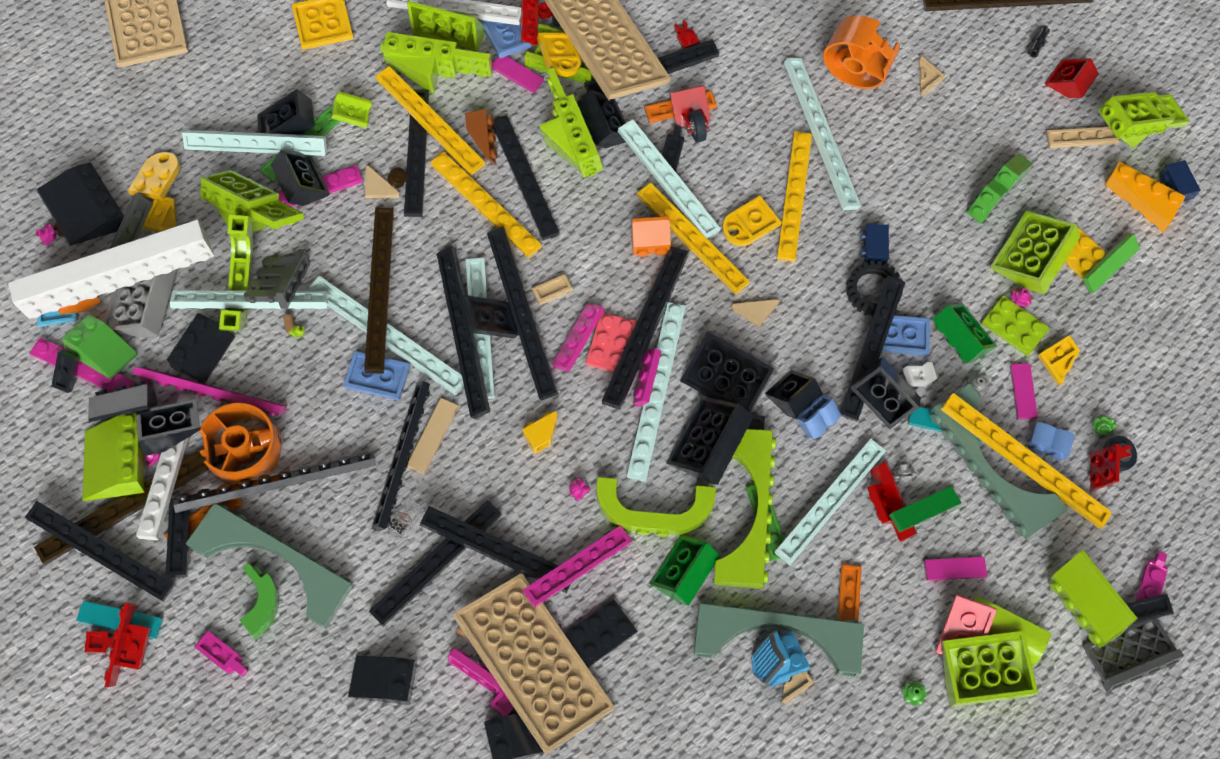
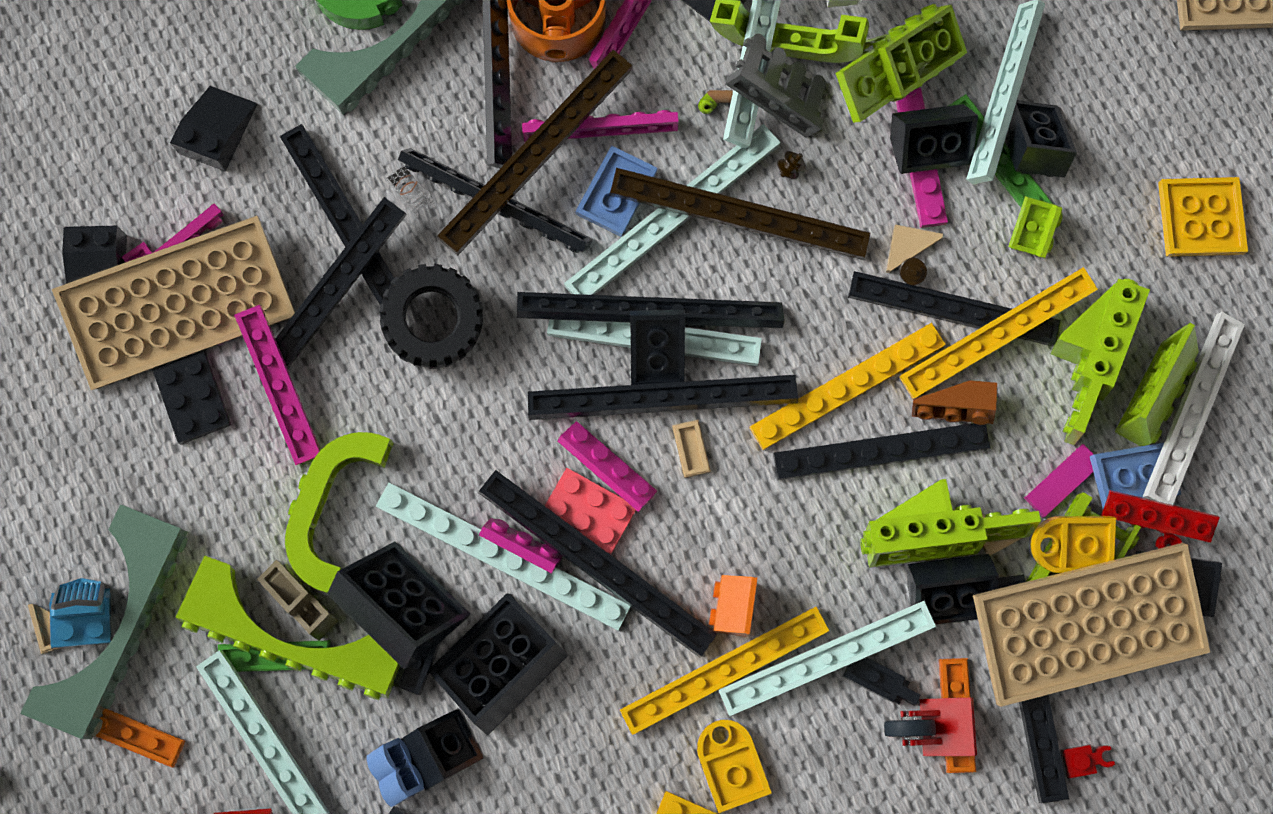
camera: 105 degrees right, 10 degrees up
(330, 404) = (616, 125): none -> dark pink plate
(334, 265) = (791, 165): none -> dark brown wheel
(362, 428) = (534, 152): none -> dark brown plate
(432, 436) = (521, 251): tan tile -> none
(508, 448) = (421, 281): none -> black tyre
(540, 433) = (476, 382): yellow slope -> none
(578, 488) = (387, 413): dark pink plant -> none
(685, 569) = (236, 524): green slope -> none
(724, 514) = (297, 600): none -> dark tan slope
(756, 311) = (585, 733): tan tile -> none

